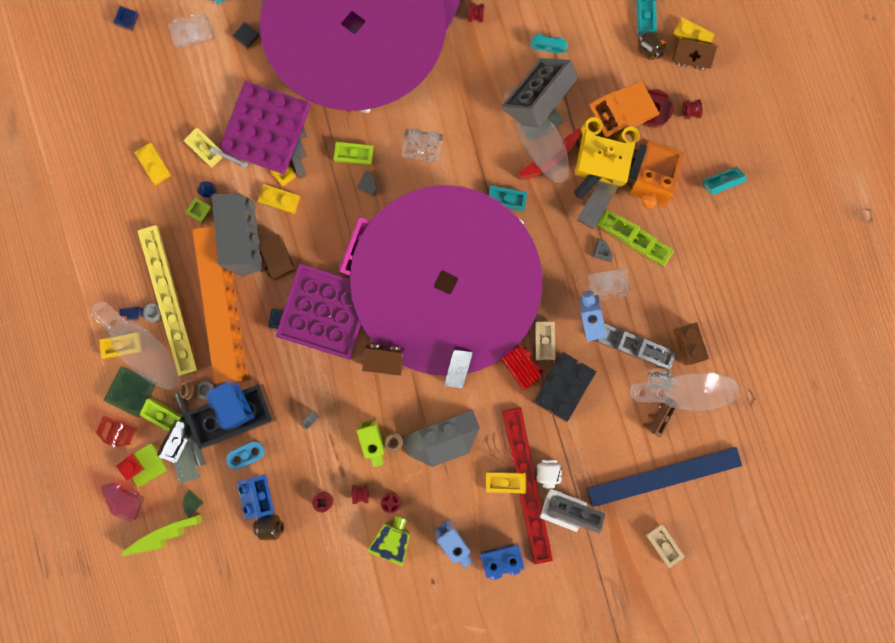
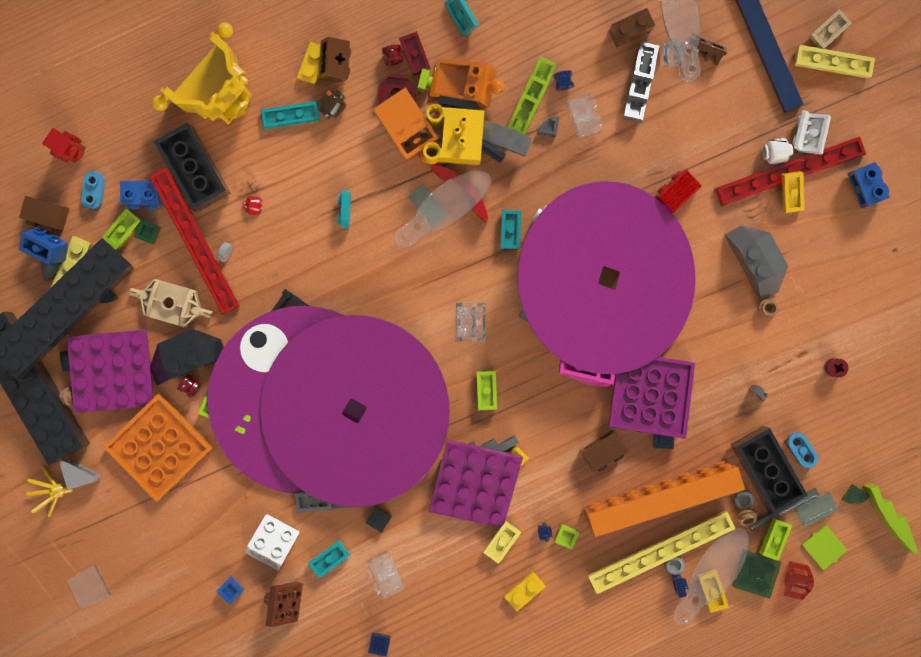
camera: 100 degrees left, 5 degrees up
(122, 502) = (864, 563): clear pink slope -> none
(130, 467) = (830, 560): red plate -> none
(175, 441) = (801, 520): plate -> none
(214, 150) = (506, 530): light grey hinge -> none
(230, 405) = (766, 469): blue brick -> none
(236, 233) = (590, 493): dark grey slope -> none
(255, 497) = (842, 433): blue brick -> none
(268, 527) = (868, 416): dark brown head -> none
(278, 199) = (543, 458): yellow plate -> none
(360, 493) = (823, 332): dark red wheel -> none
(367, 183) = (514, 371): dark grey tile -> none
(369, 434) = (771, 329): lime torso -> none
(383, 359) = (690, 329): reddish brown brick -> none
(388, 504) = (832, 301): dark red wheel -> none
(391, 541) = (865, 295): torso -> none
(449, 539) = (858, 235): medium blue torso -> none
(458, 368) = (687, 254): slope -> none
(476, 12) = (322, 287): dark red wheel -> none
(540, 91) = (399, 210): dark grey slope -> none
(544, 341) = (648, 172): tan plate -> none
(564, 386) = (692, 147): black piece -> none
(576, 513) = (815, 118): dark grey plate -> none
(591, 310) = (615, 129): medium blue torso -> none
(632, 545) = (834, 61): none -> light yellow plate
(646, 270) = (563, 80): none -> clear blue wheel
(663, 136) = (425, 81): none -> lime plate
(691, 131) = (414, 53): none -> dark red plate

